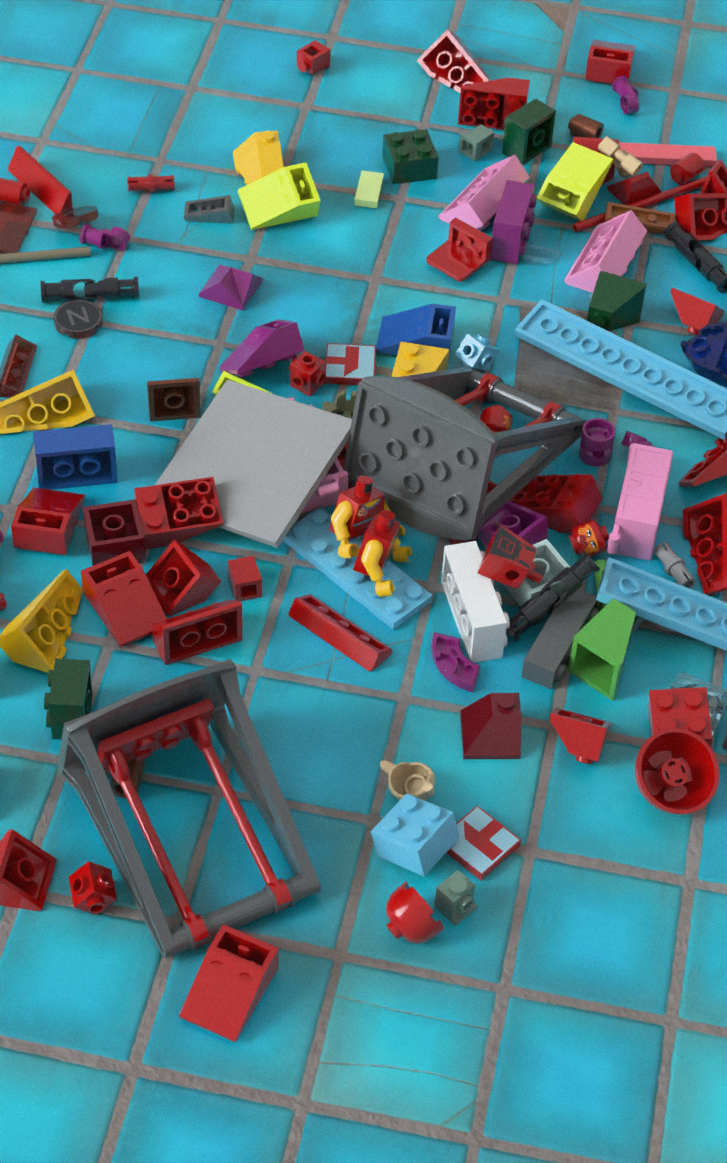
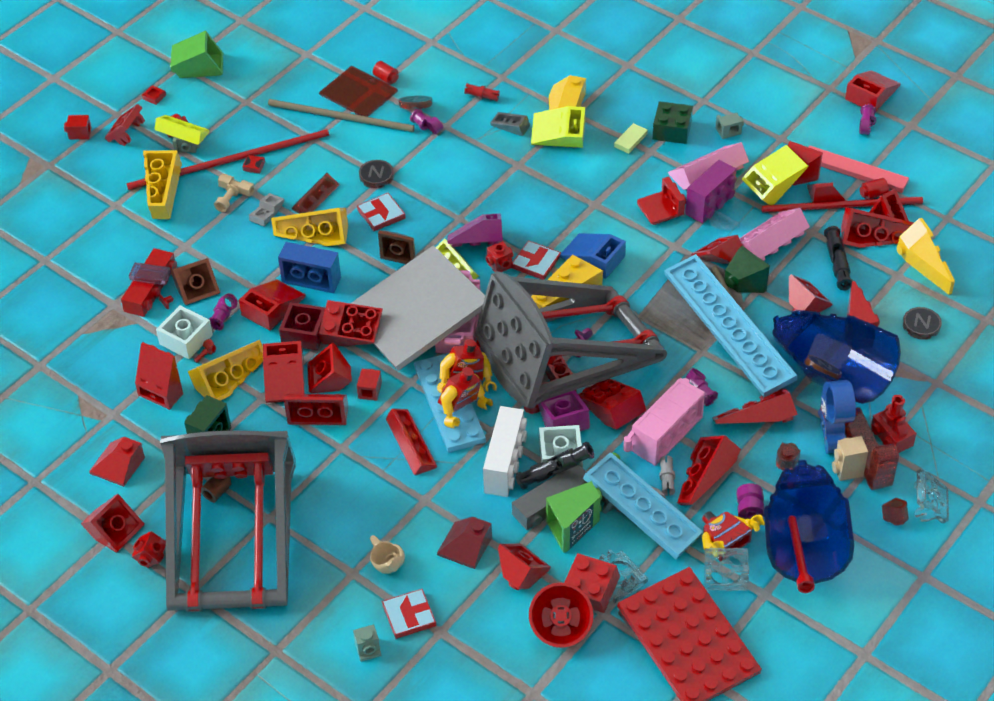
camera: 30 degrees right, 0 degrees up
(40, 181) = (409, 71): red slope -> none
(108, 288) = (405, 158): black piece -> none
(115, 363) = (381, 211): none -> tile
(230, 982) = (193, 640): red slope -> none
(231, 287) = (491, 181): magenta slope -> none
(313, 57) = (651, 30): red brick -> none
(411, 916) = (330, 643): red cylinder -> none
(415, 834) = (365, 591): medium azure brick -> none
(452, 62) = (751, 64): wedge -> none
(452, 663) = (471, 488): magenta tile -> none
(476, 352) = (624, 278): medium azure brick -> none
(491, 101) = (758, 100): red slope -> none
(496, 418) = (605, 331): red head -> none
(510, 559) = (535, 430): red torso -> none
(528, 131) = (768, 127): dark green brick -> none
(566, 286) = (720, 250): none -> red slope
(585, 127) = (817, 137): copper brick -> none
(589, 538) = (613, 435): red head -> none
(597, 442) = (667, 369): magenta wheel -> none
(625, 162) = (819, 168): tan bar -> none
(652, 220) = (813, 215): dark orange tile -> none

